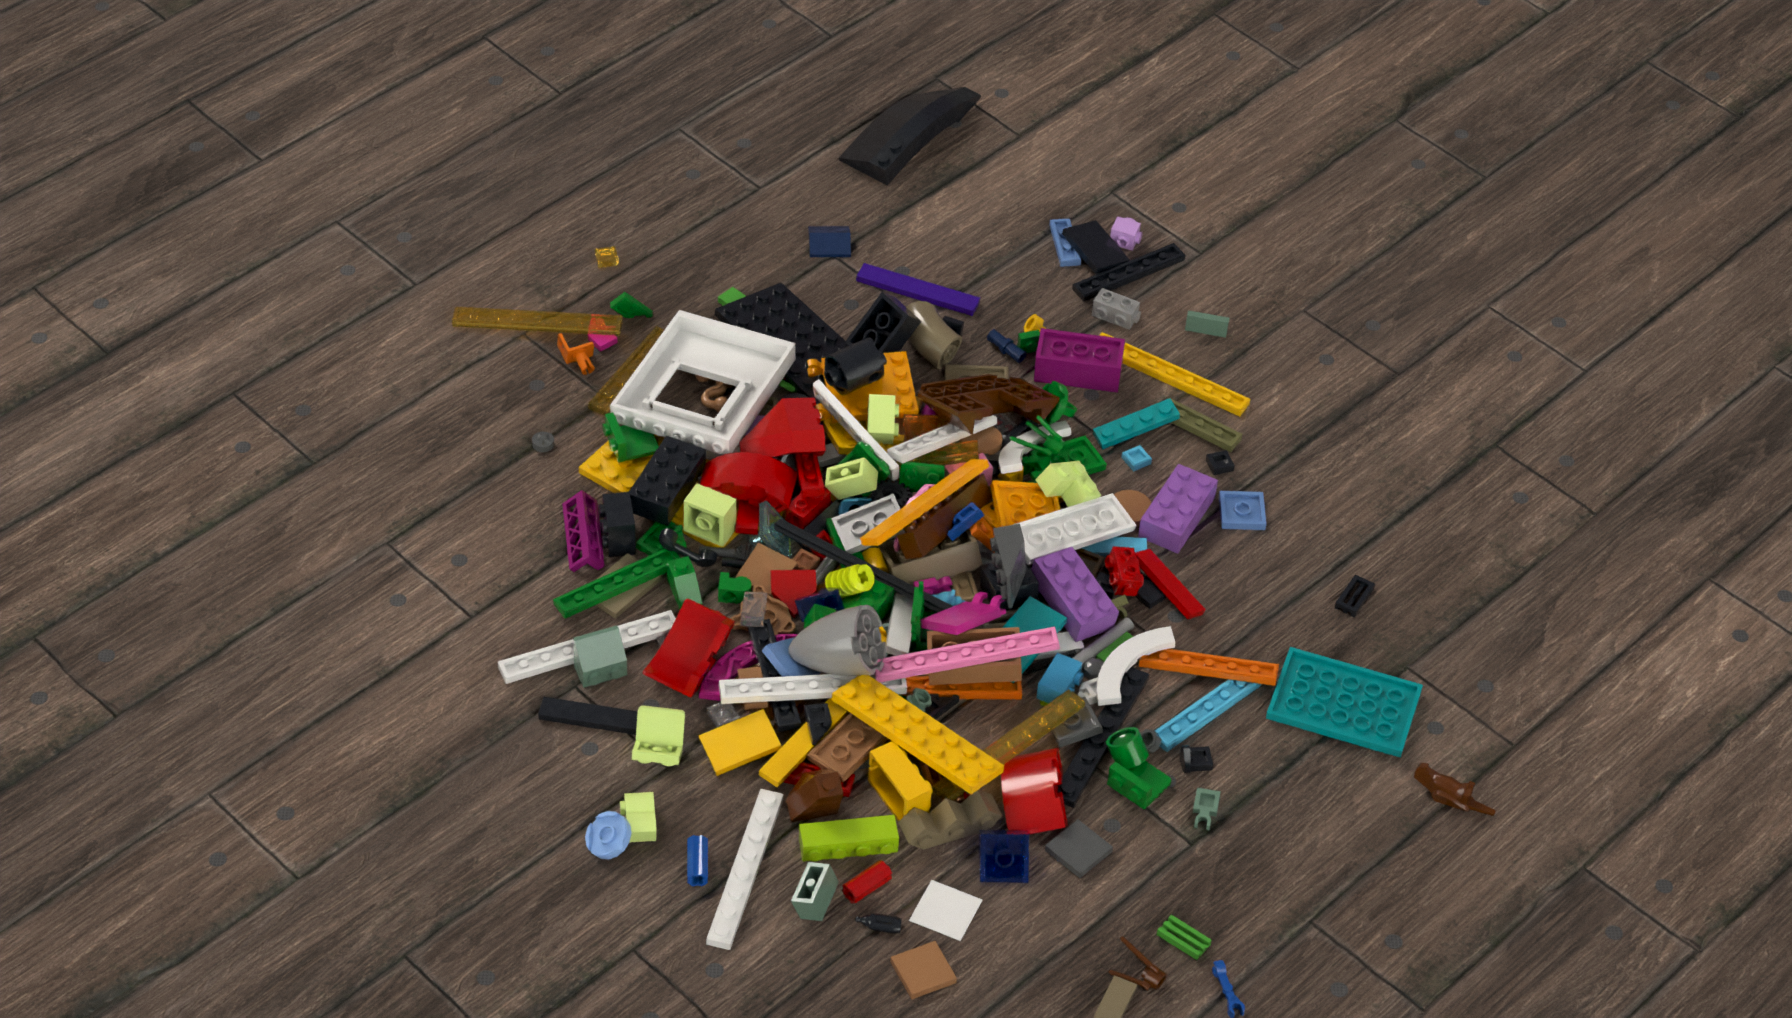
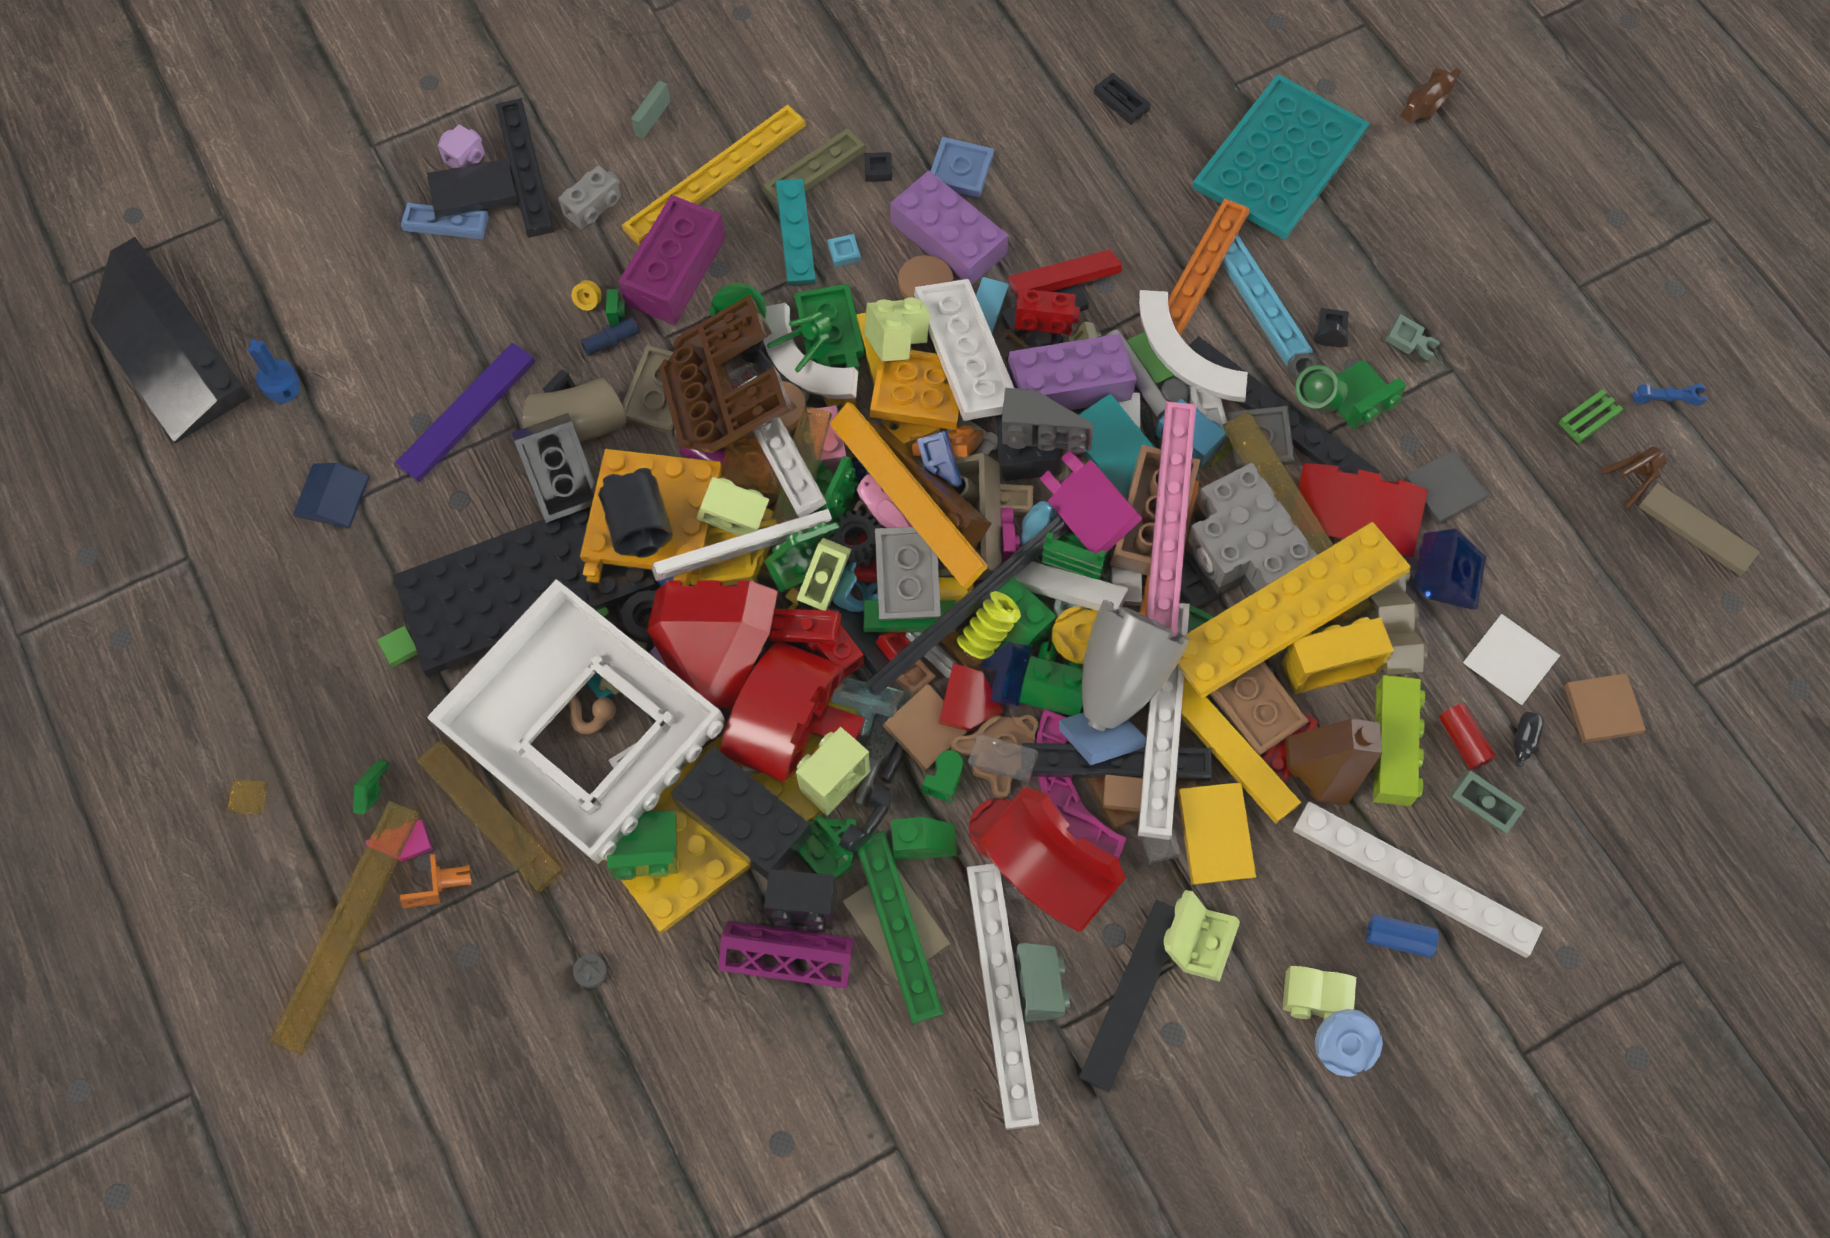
camera: 70 degrees left, 20 degrees up
(817, 720) = (1214, 726): black tile -> none
(901, 187) = (274, 375): none -> blue piece
(920, 699) = (1197, 596): sand green plate -> none
(981, 709) = (1244, 534): none -> light grey piece

